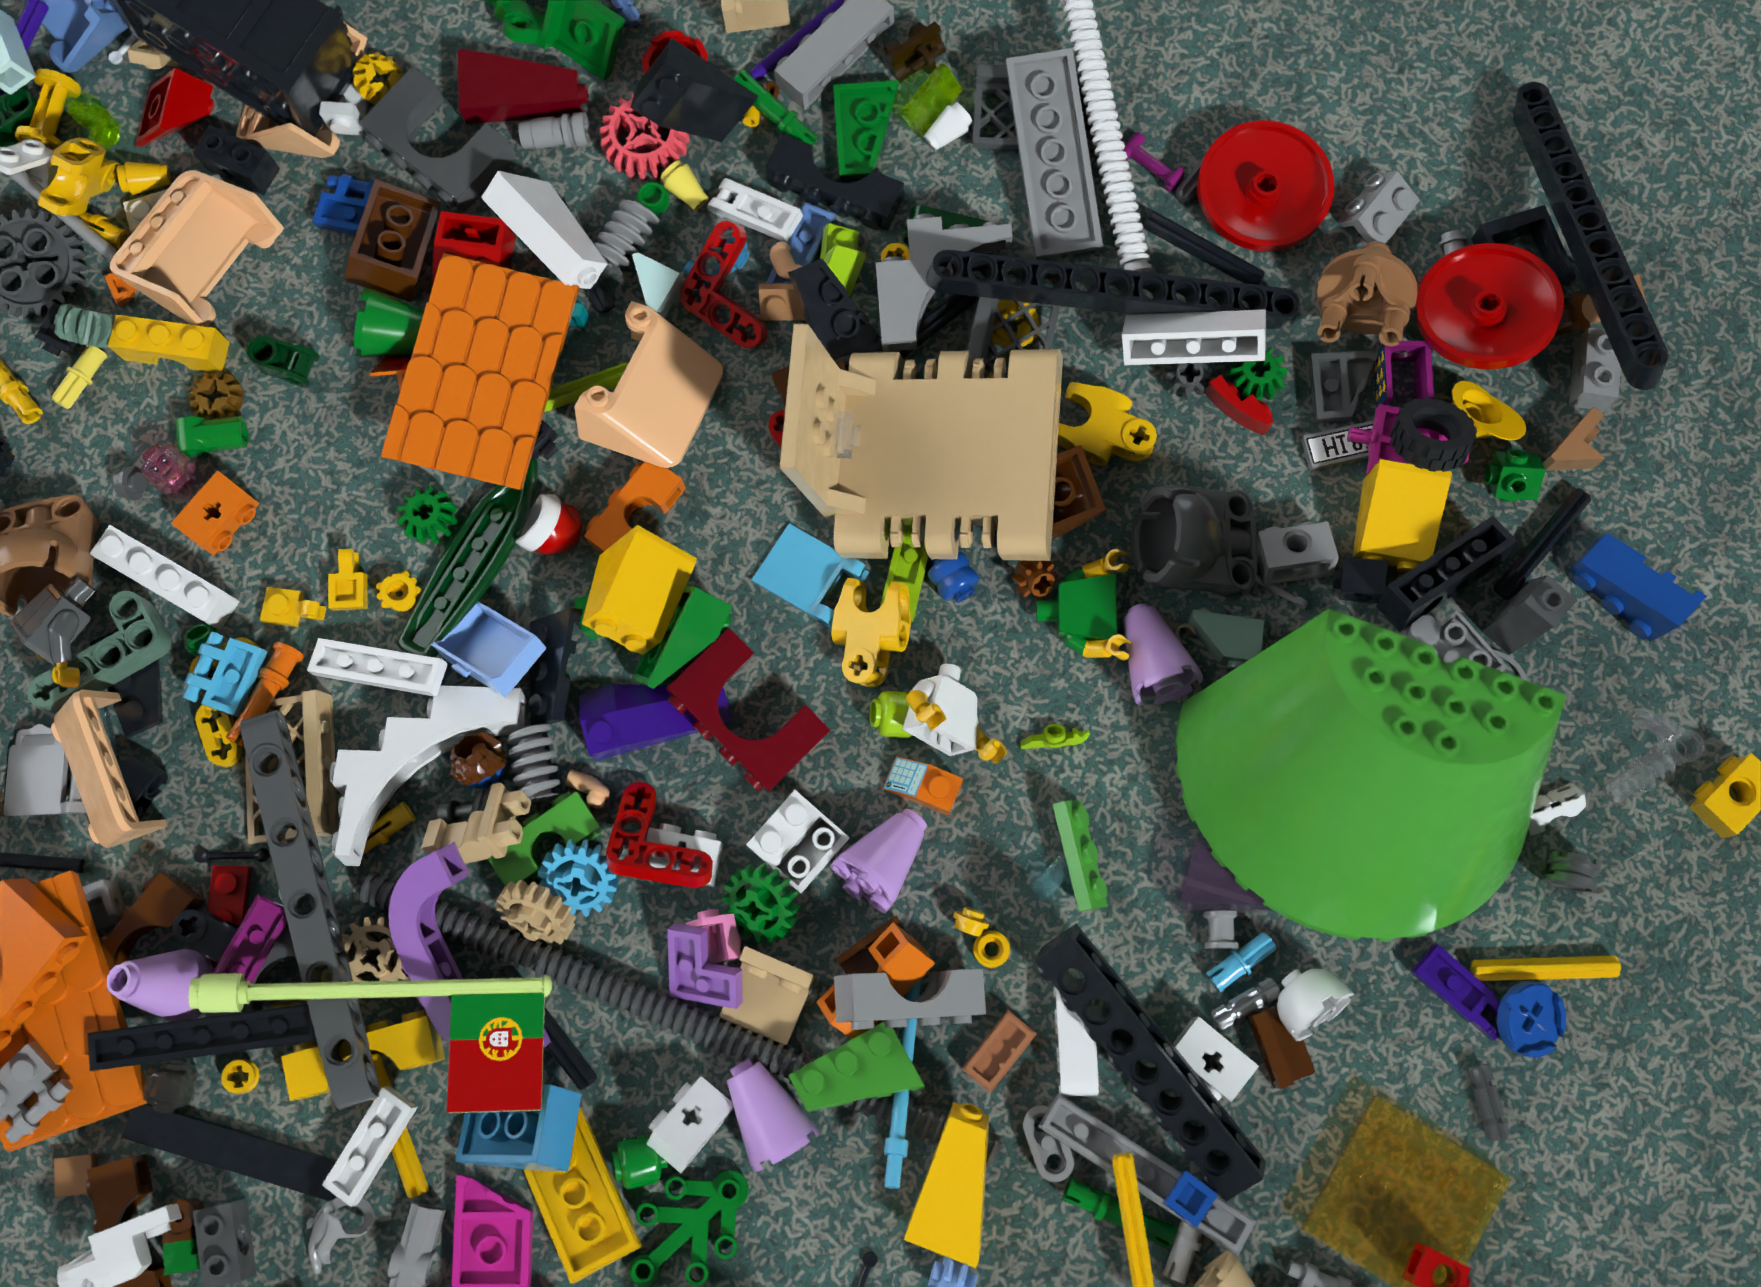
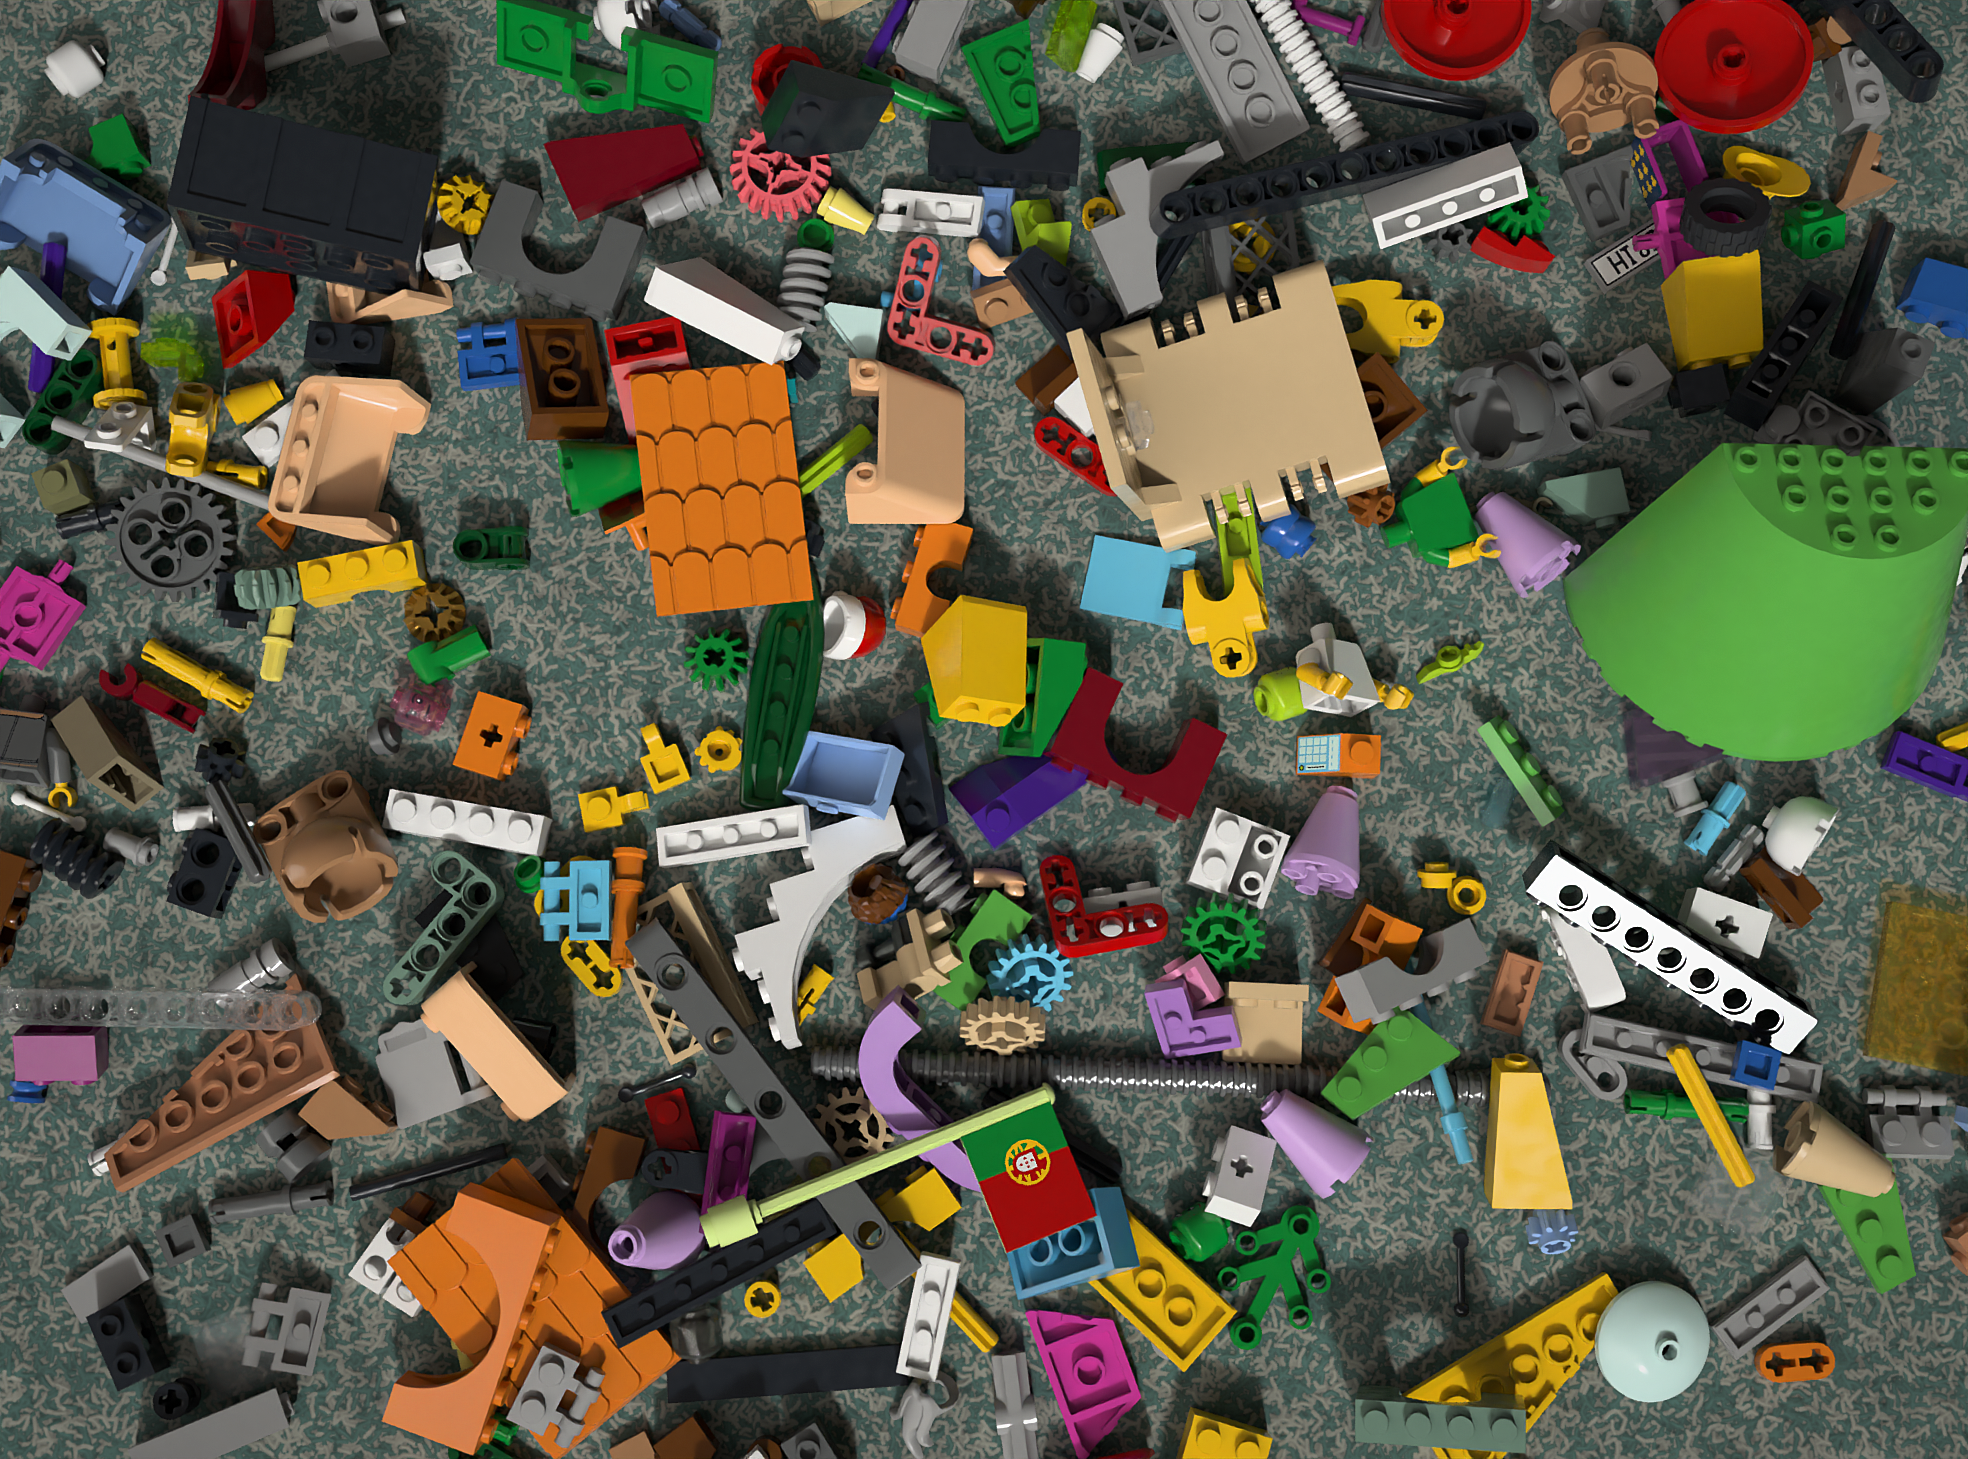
camera: 25 degrees left, 5 degrees up
(52, 624) = (384, 915): dark grey torso -> none

